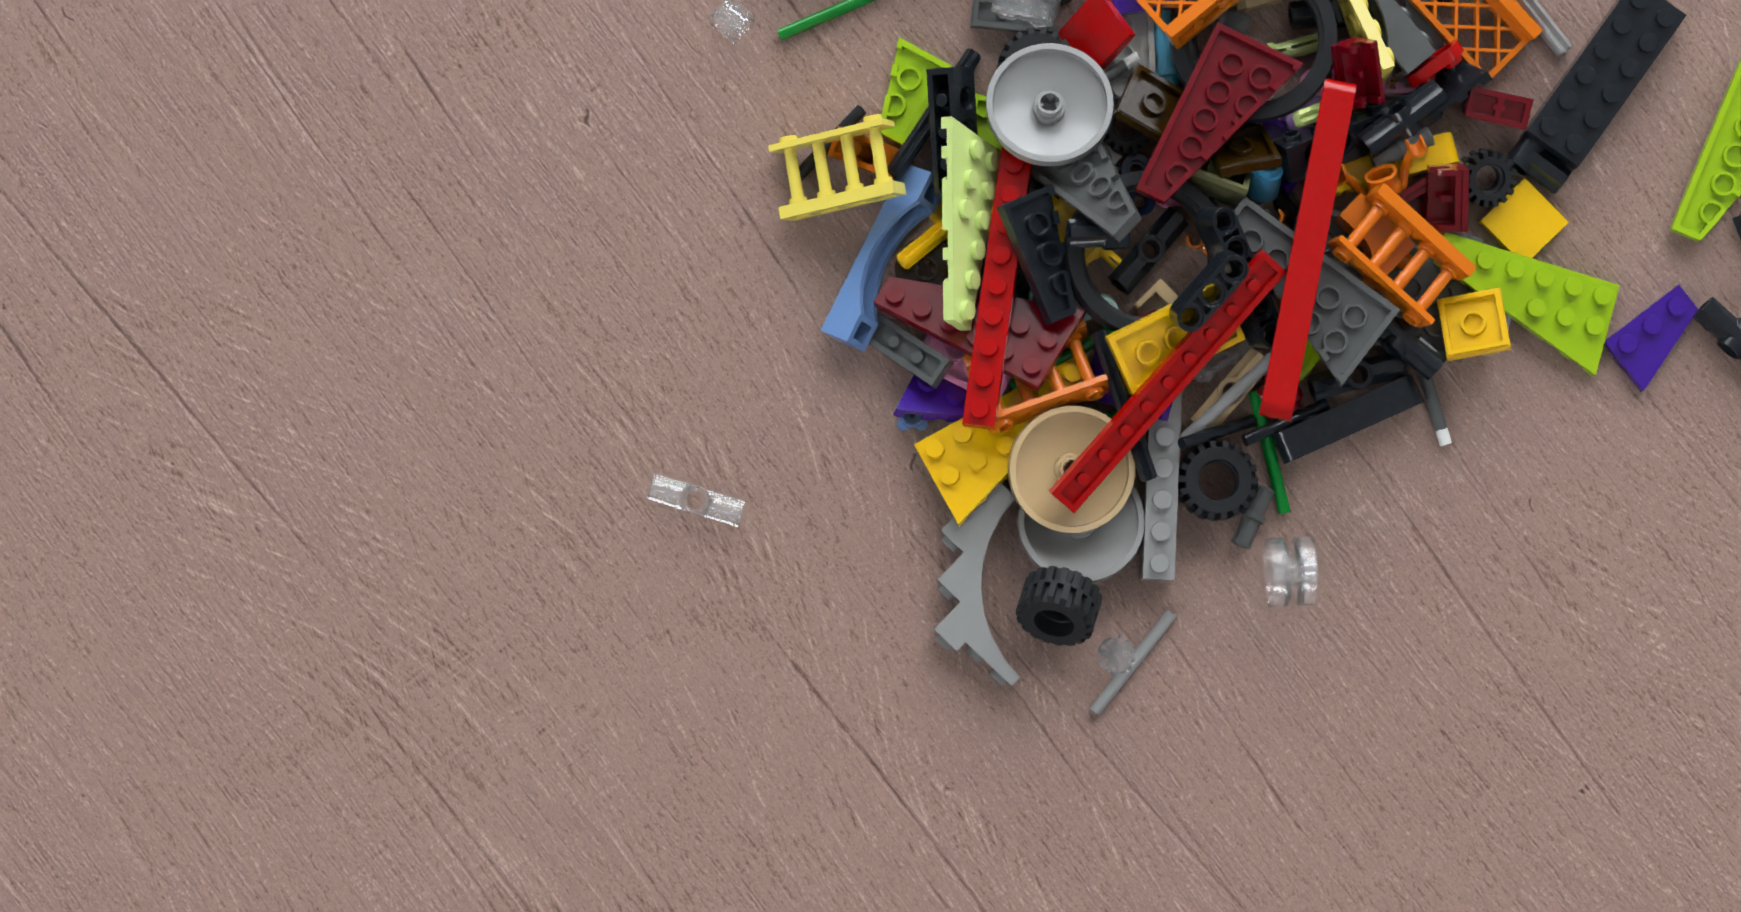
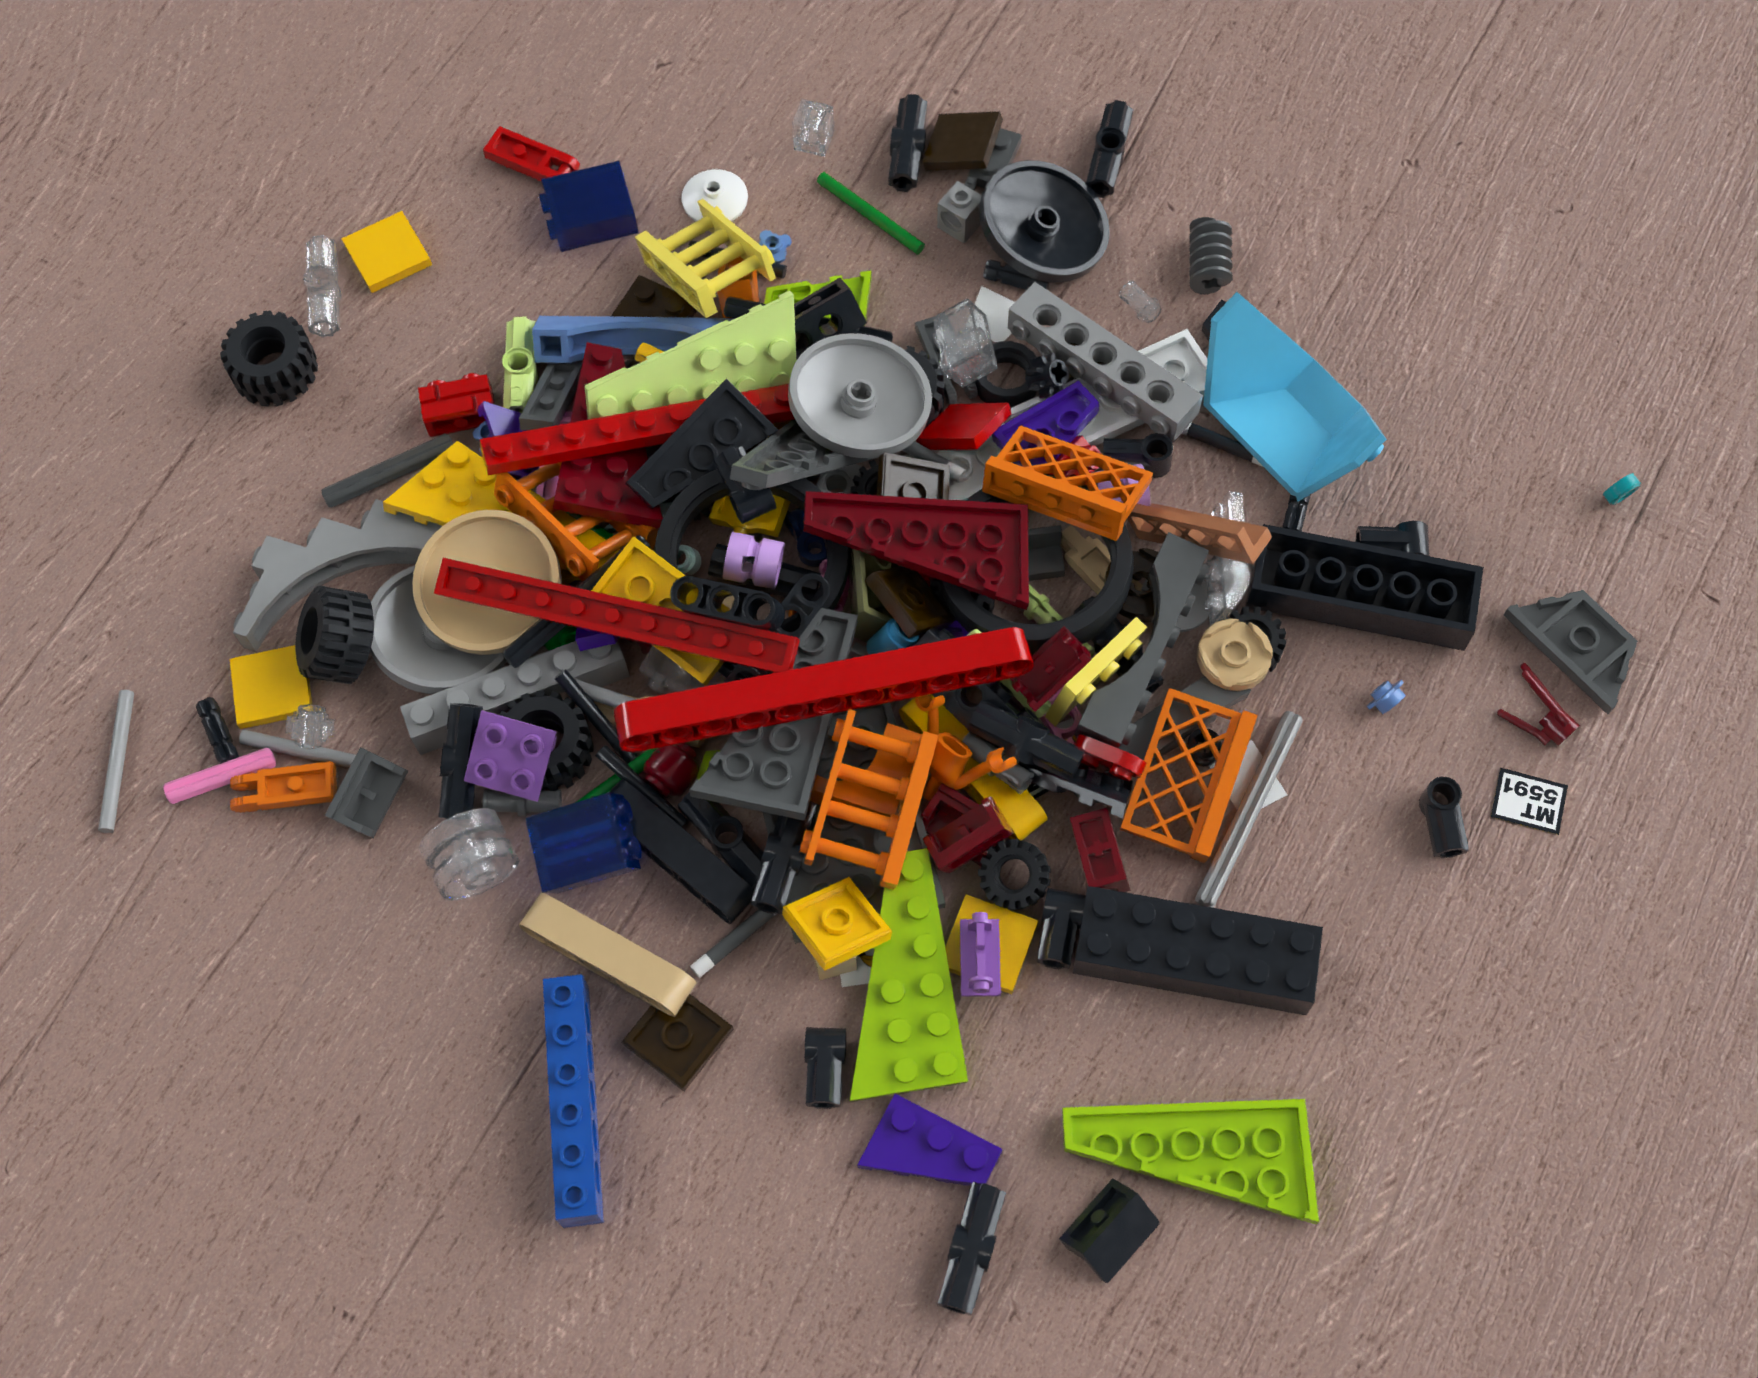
camera: 65 degrees right, 20 degrees down
(641, 273) = (527, 155): none -> red plate
(679, 433) = (386, 251): none -> yellow tile
(720, 244) = (588, 206): none -> clear blue brick
(726, 563) = (257, 339): none -> black tyre
(752, 149) = (729, 193): none -> white dish
(841, 357) = (519, 354): none -> yellowish green piece
(843, 107) = (781, 243): none -> medium blue plate
(844, 235) = (652, 300): none -> dark brown wing
(871, 431) = (454, 404): none -> red brick
(903, 511) = (385, 471): none -> dark grey axle
(1060, 675) = (267, 686): none -> yellow tile
(1069, 816) = (116, 761): none -> light grey bar
(1081, 730) = (216, 730): none -> black axle
(1121, 740) = (217, 775): none -> bright pink axle
(1157, 691) = (285, 787): none -> orange hinge
(1168, 254) = (766, 564): none -> lavender wheel
(1195, 631) = (366, 793): none -> dark grey hinge
(1209, 549) = (457, 794): none -> black piece
(1232, 507) = (510, 756): none -> medium lavender hinge
(1320, 482) = (583, 843): none -> clear blue brick
(1409, 502) = (608, 954): none -> tan beam
(1488, 477) = (678, 1044): none -> dark brown tile
(1508, 571) = (572, 1102): none -> blue brick
(1537, 233) = (980, 956): none -> medium lavender hinge
(1556, 378) = (824, 1058): none -> black piece

